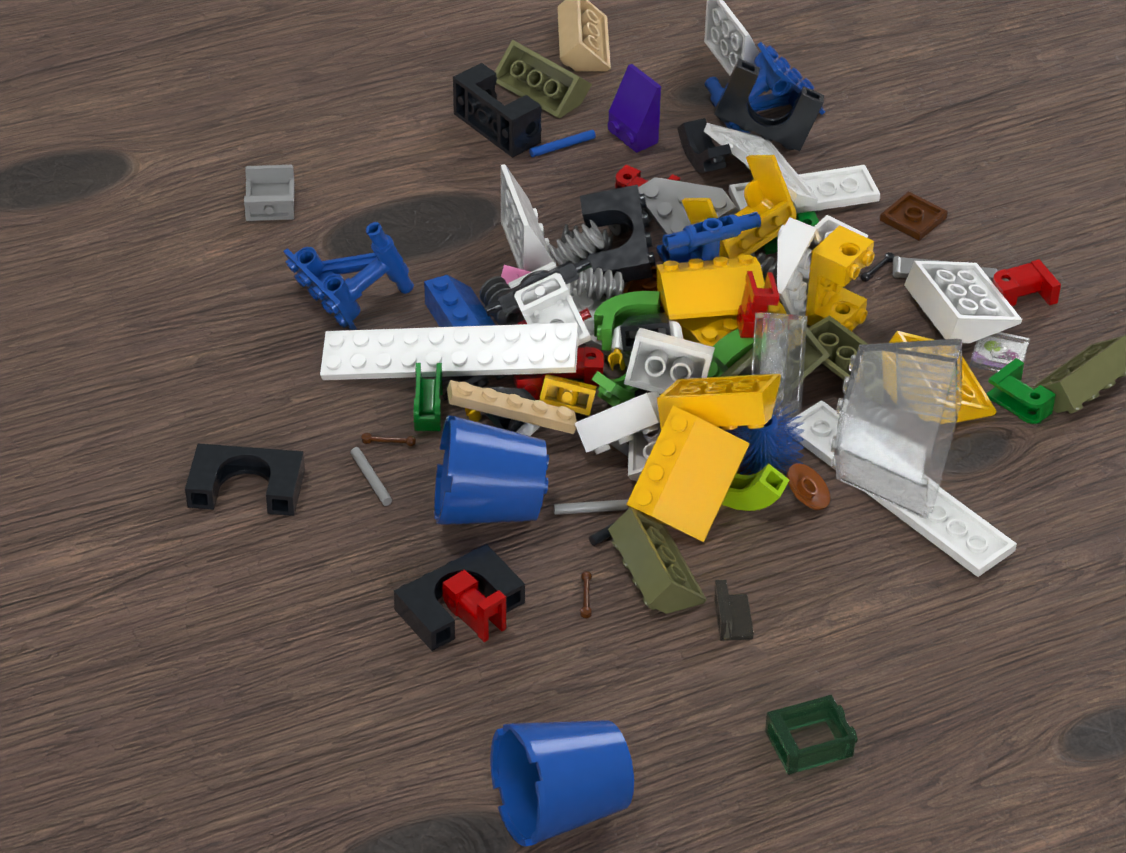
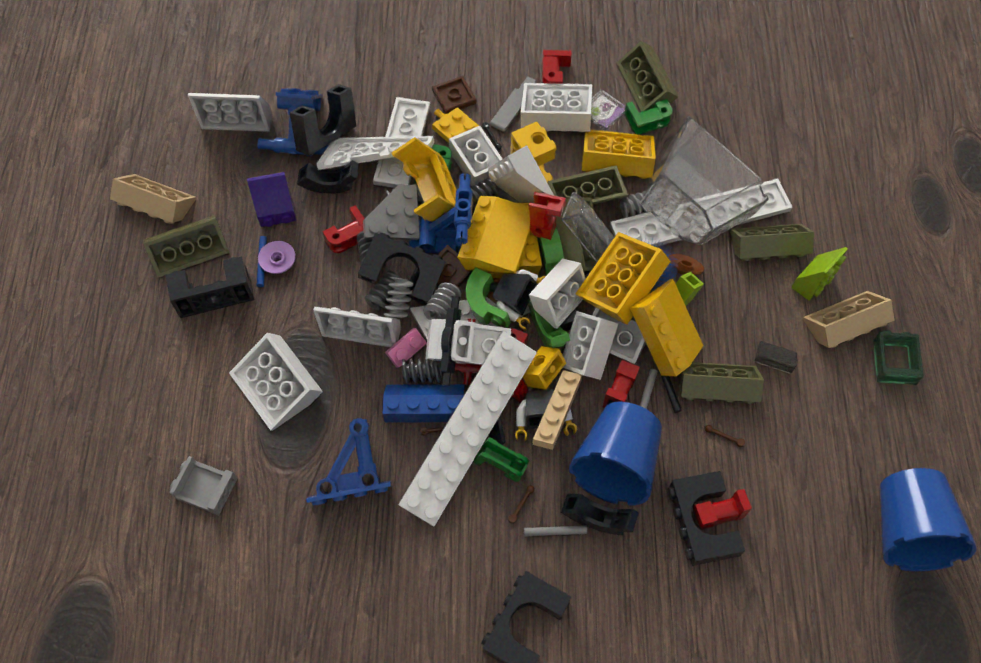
camera: 65 degrees left, 20 degrees up
(406, 494) = (597, 516): none -> black arch
(422, 200) = (275, 381): none -> white slope
(572, 148) = (274, 251): none -> lavender dish
(587, 476) = (623, 382): none -> red piece
(838, 671) = (850, 318): none -> tan slope
(868, 222) = (452, 123): none -> yellow plate
(879, 610) = (819, 273): none -> lime slope
(907, 563) = (772, 241): none -> olive slope

